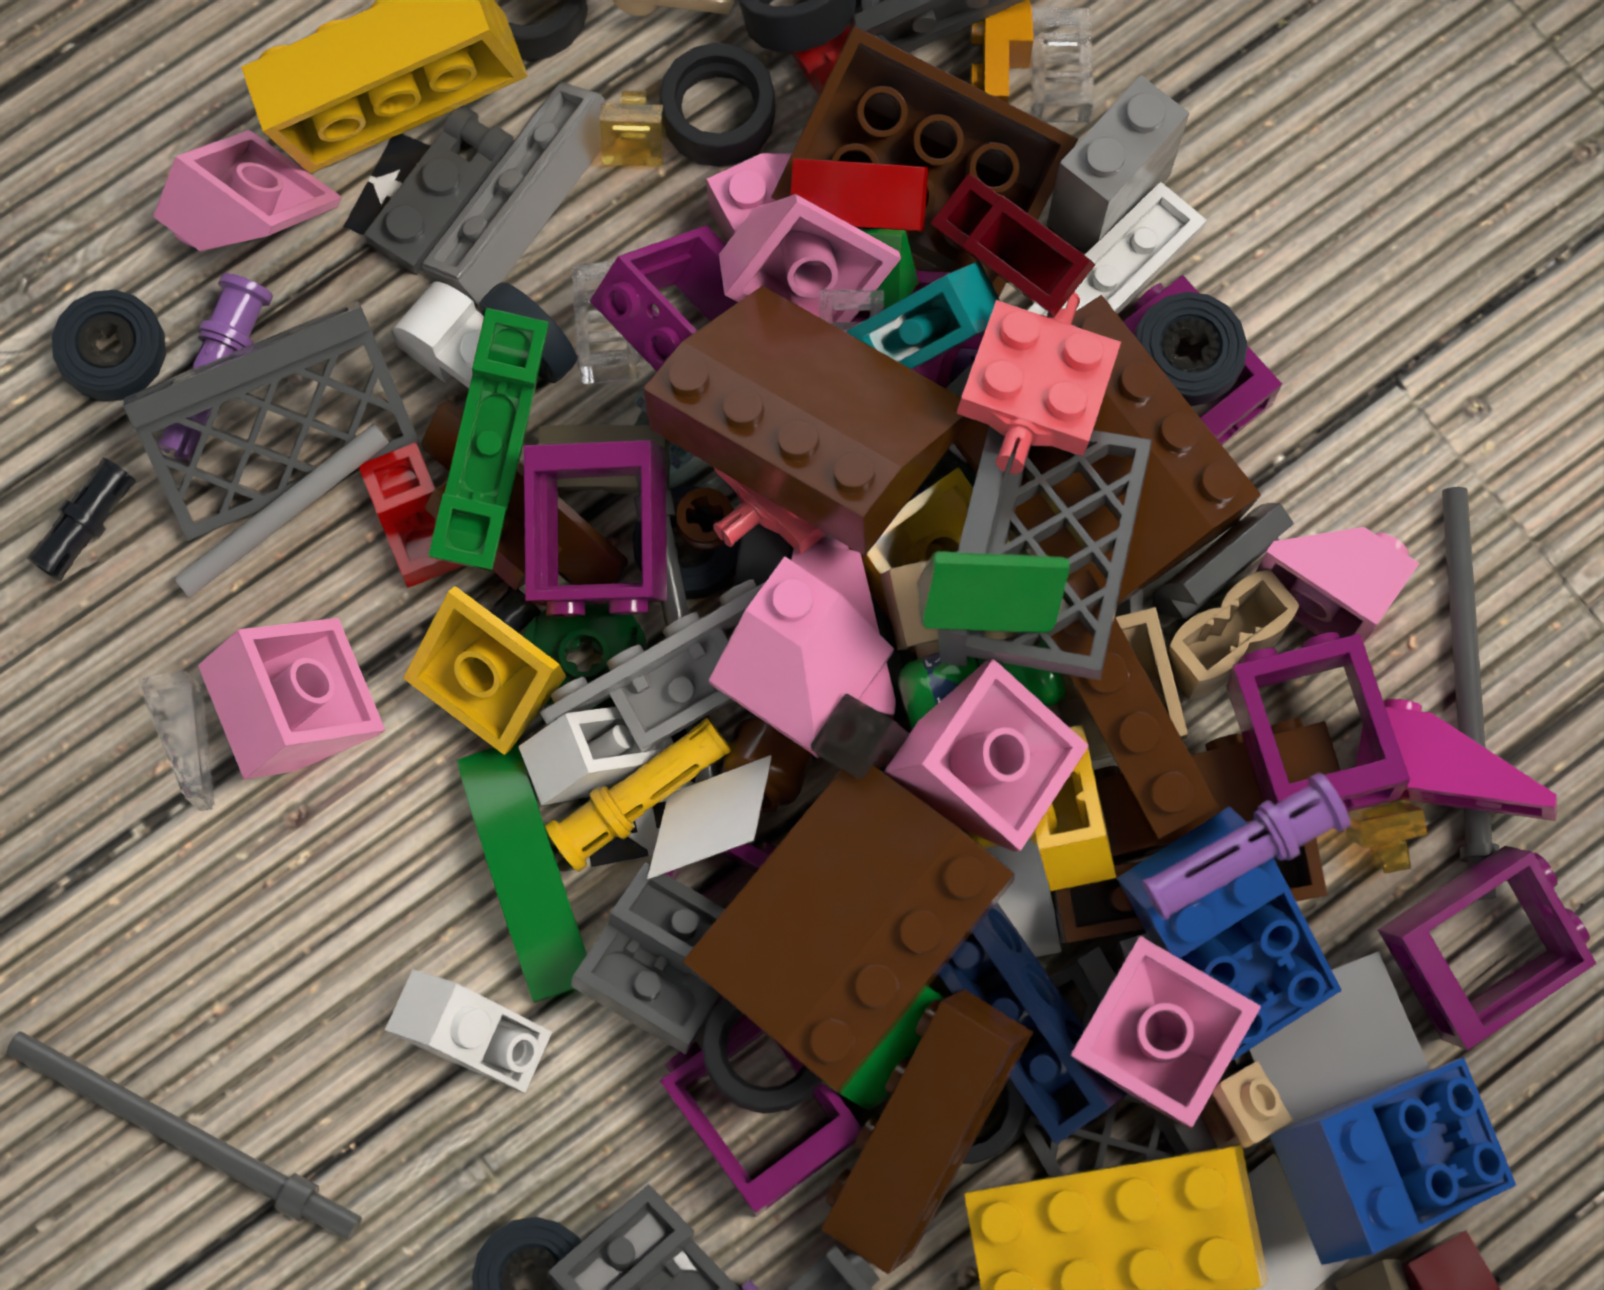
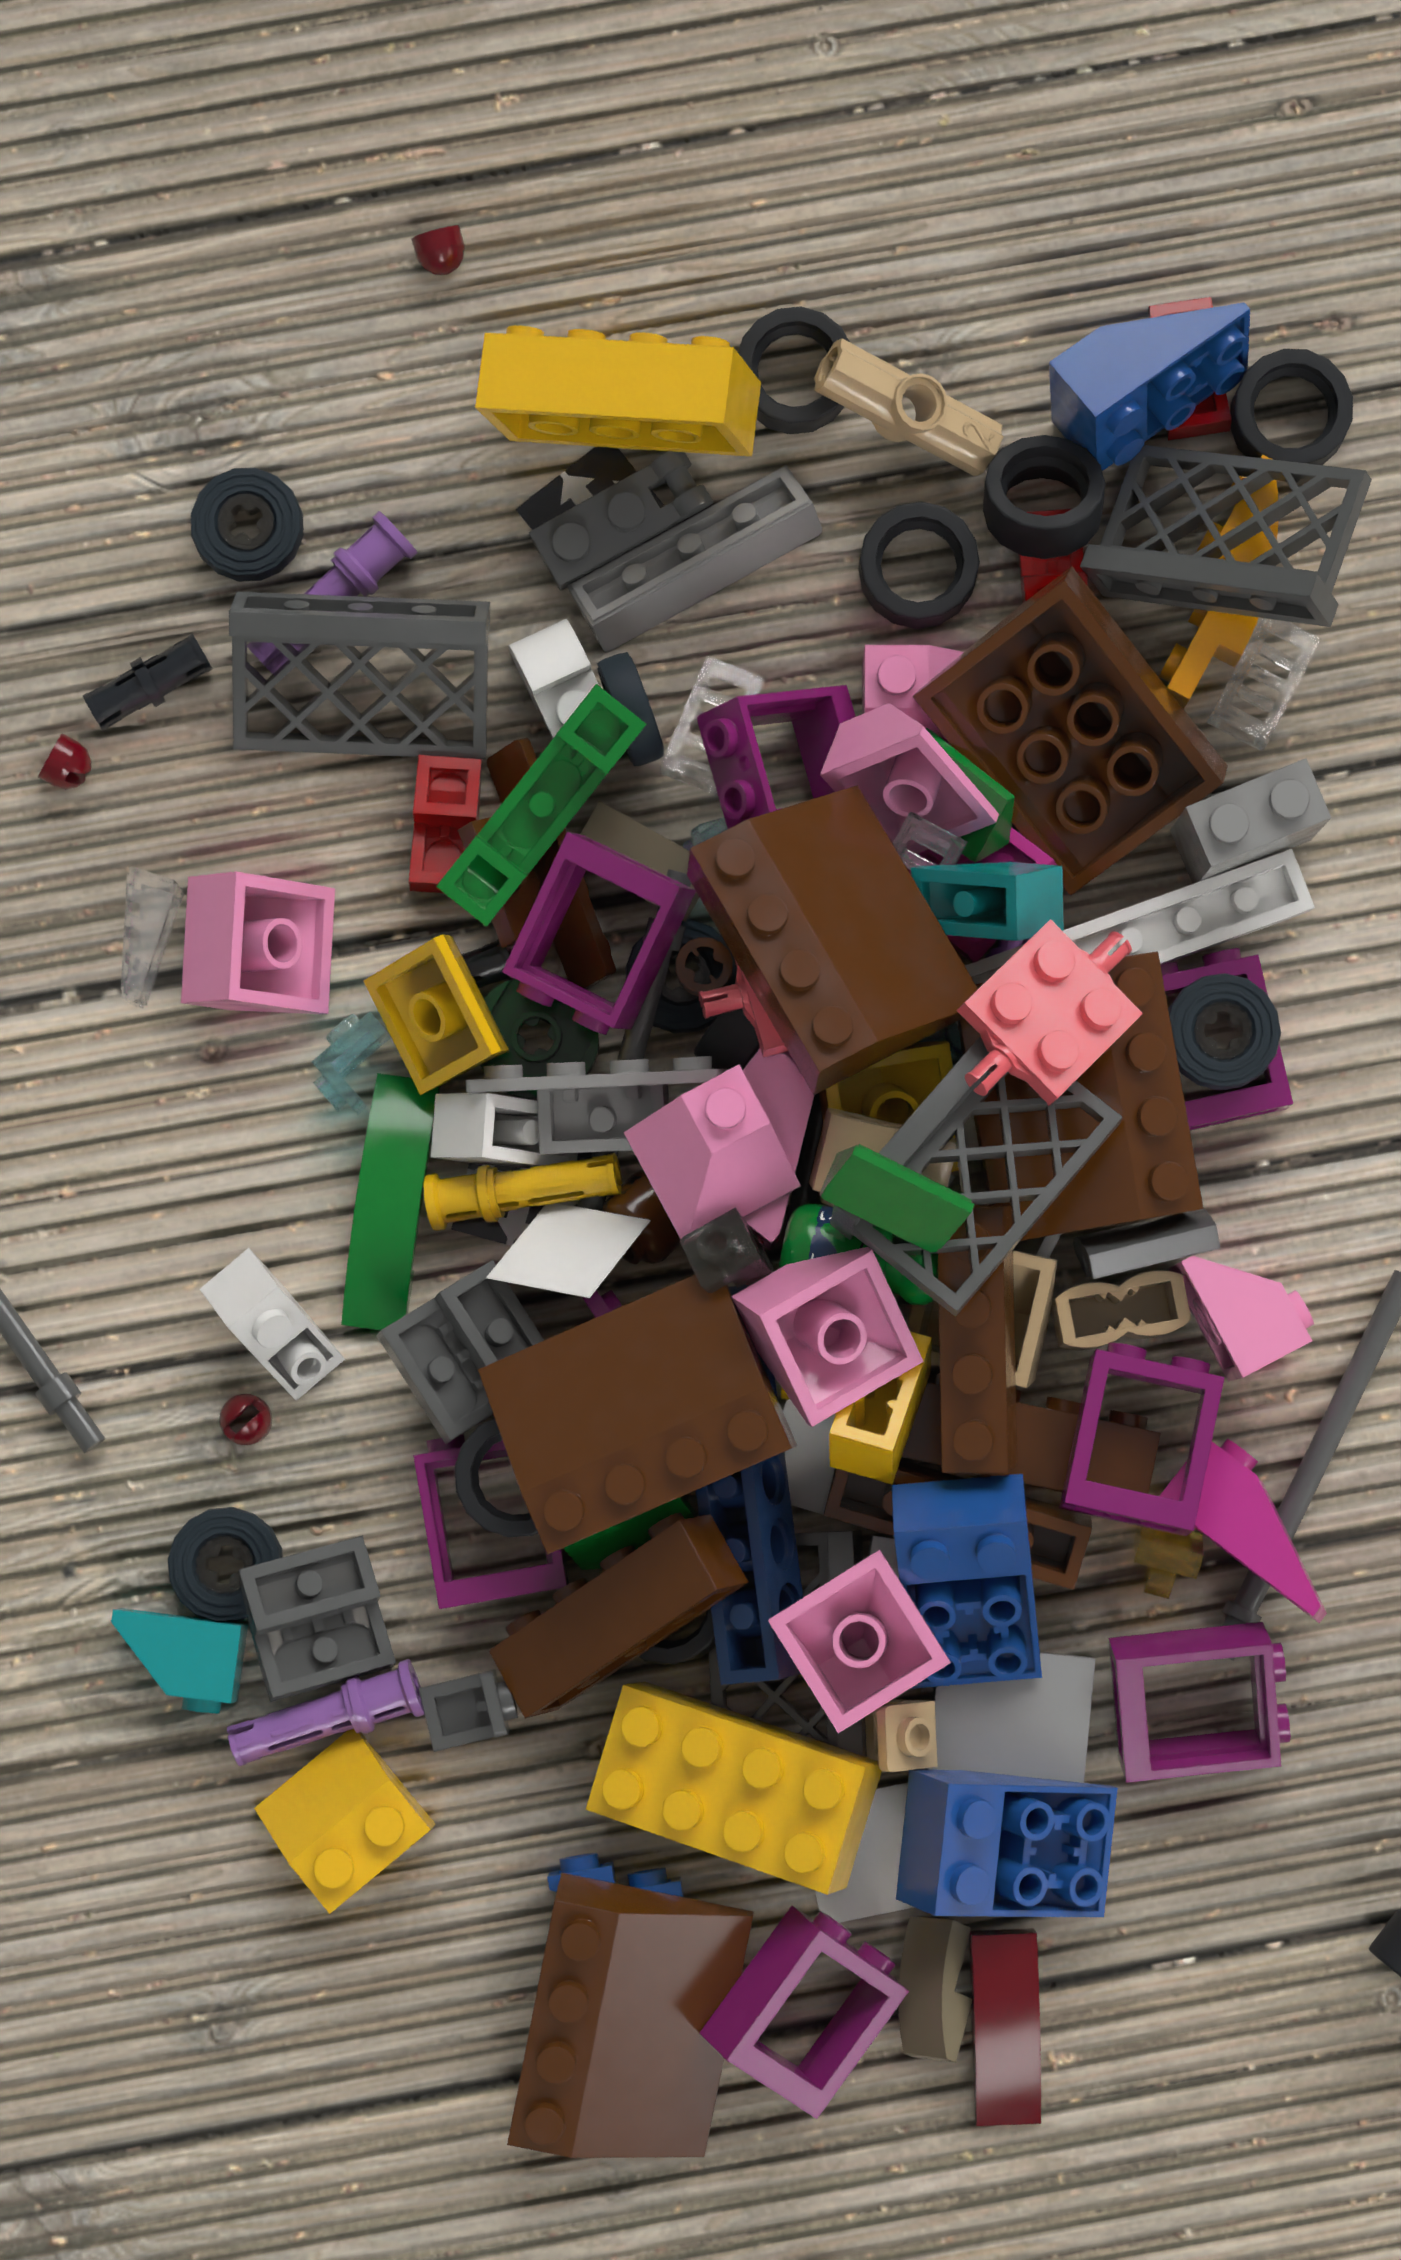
camera: 30 degrees right, 10 degrees up
(34, 623) = (66, 764): none -> dark red hinge
(170, 42) = (440, 249): none -> dark red hinge
(238, 193) = (433, 441): bright pink slope -> none
(281, 510) = (331, 764): light grey bar -> none
(418, 747) = (350, 1045): none -> clear light blue bracket
(499, 1137) = (255, 1429): none -> dark red hinge
(632, 131) = (825, 553): clear yellow tile -> none
(864, 192) = (991, 739): red slope -> none
(1012, 244) = (1100, 865): dark red slope -> none
(1274, 832) = (1038, 1524): medium lavender pin -> none

